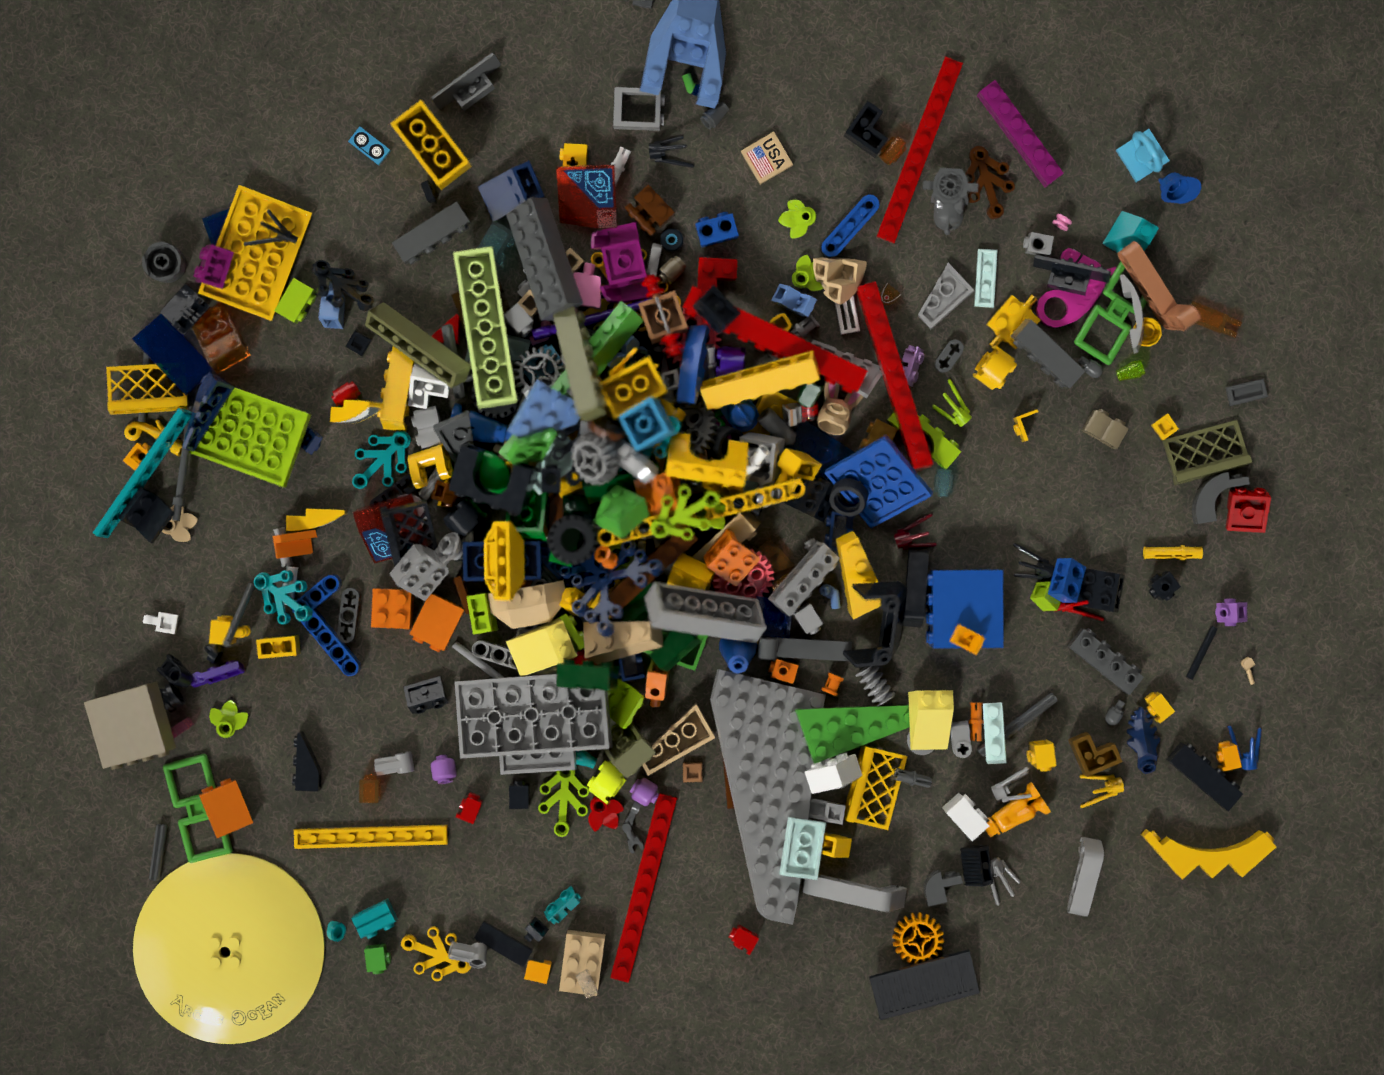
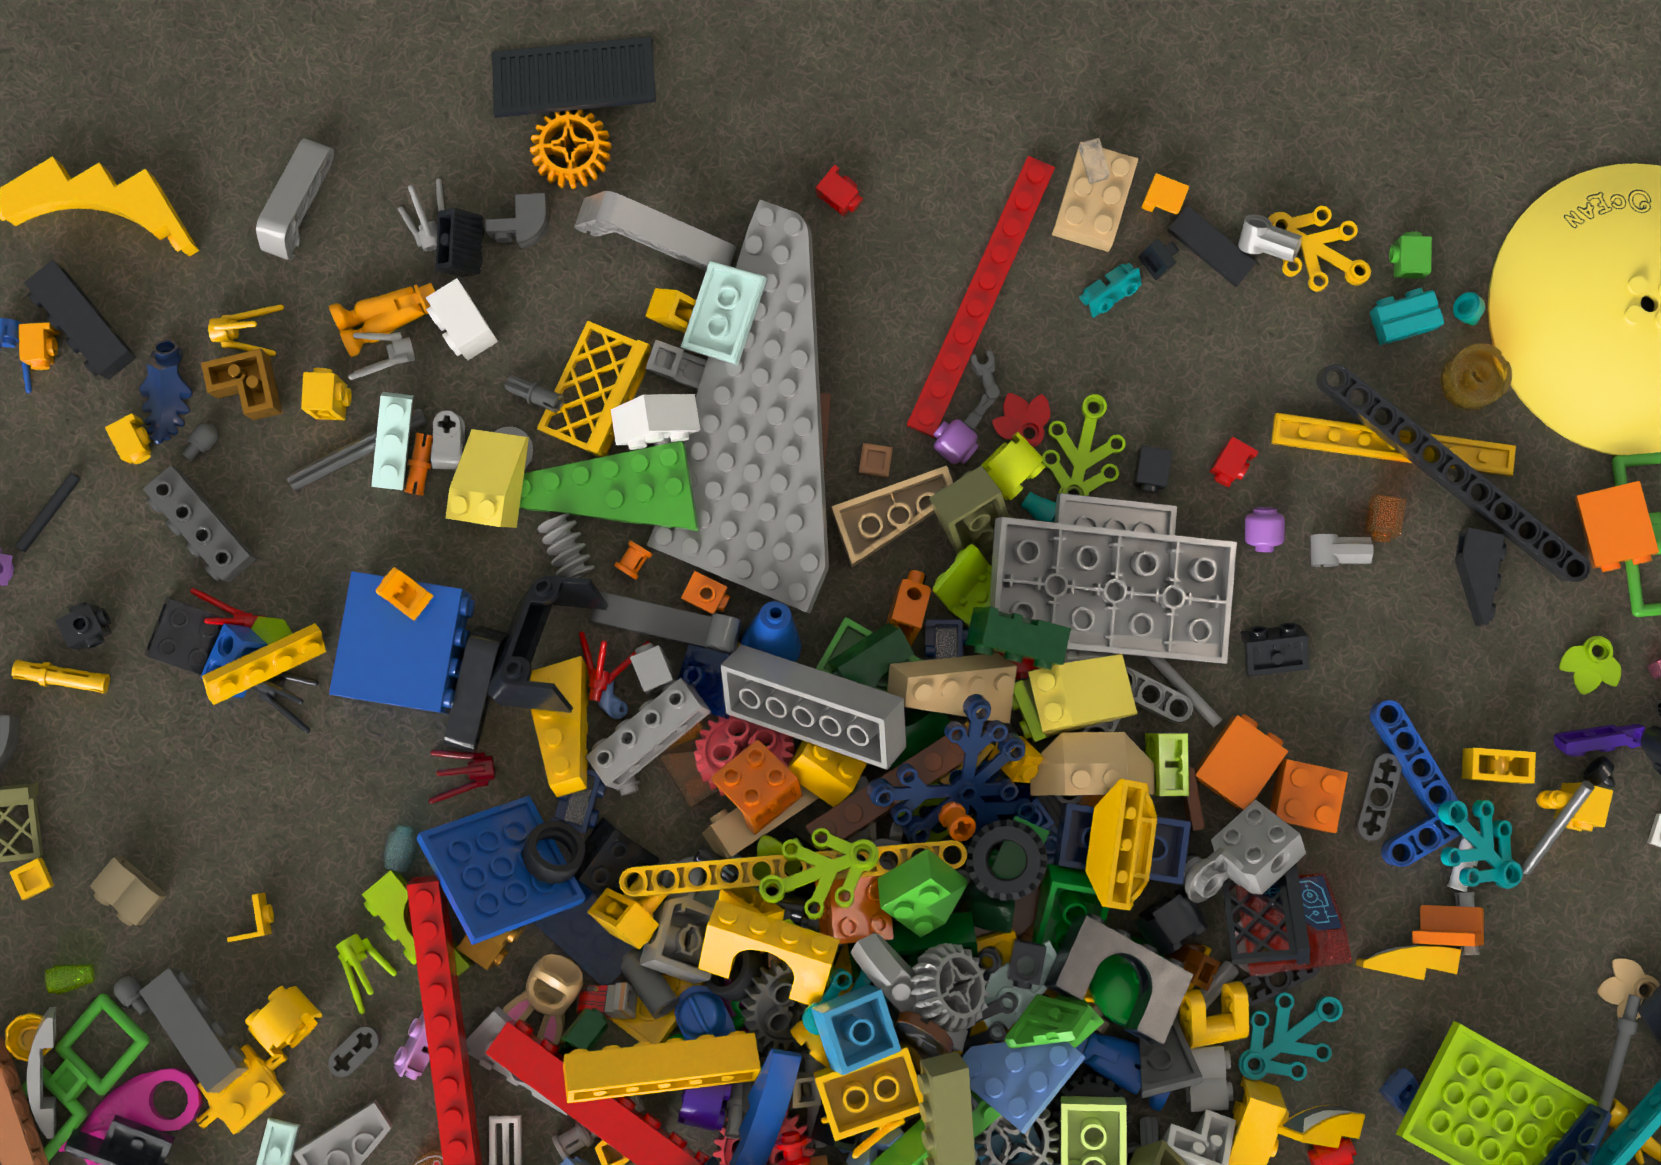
camera: 175 degrees left, 5 degrees down
(317, 893) = (1489, 367): none -> clear yellow brick
(322, 822) = (1466, 479): none -> black beam
(754, 461) = (692, 936): white pin -> none
(839, 607) = (598, 678): none -> red plant
(1047, 581) = (264, 664): none -> yellow plate

